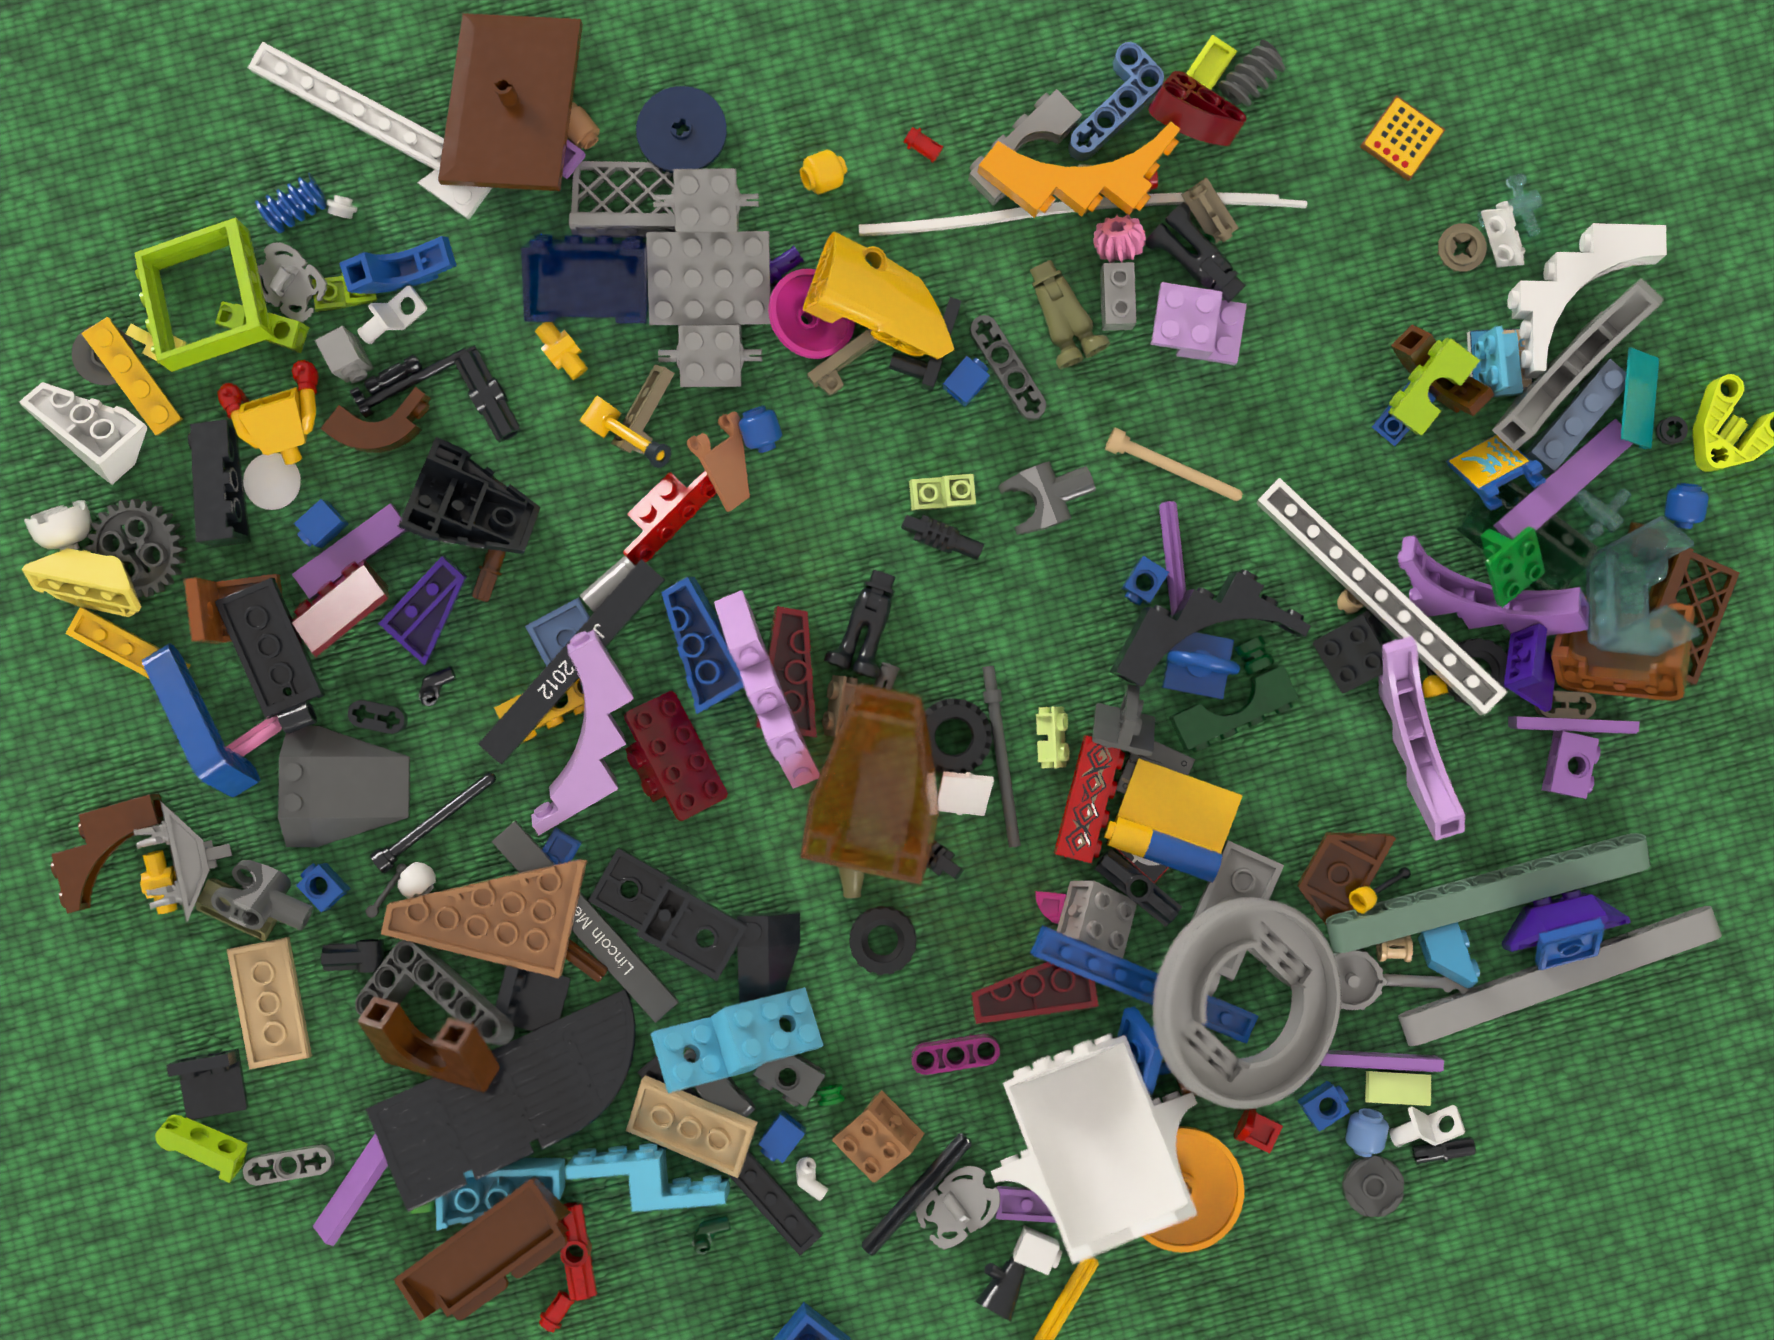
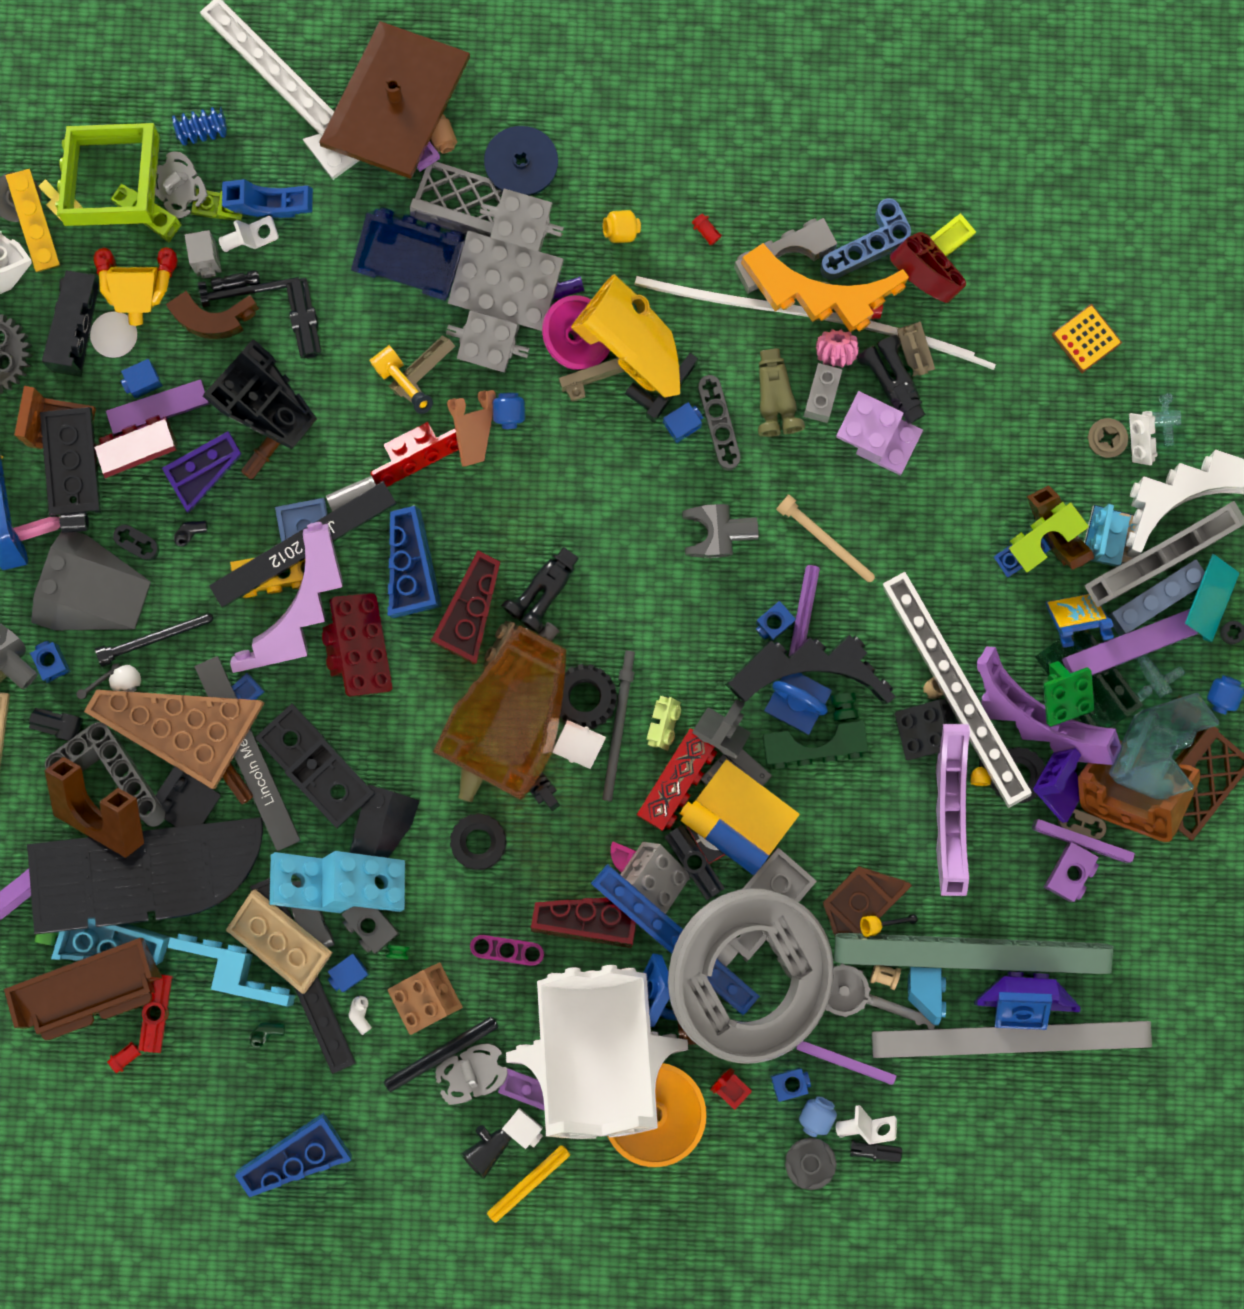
camera: 20 degrees right, 5 degrees down
(341, 207) = (237, 140): white plate -> none
(561, 350) = (372, 301): yellow axle -> none
(765, 690) = (446, 613): lavender arch -> none
(941, 536) = (625, 538): black hinge -> none
(942, 492) = (636, 503): yellowish green slope -> none
(1252, 74) = (981, 253): dark grey piece -> none
(1398, 1088) = (854, 1089): yellowish green slope -> none

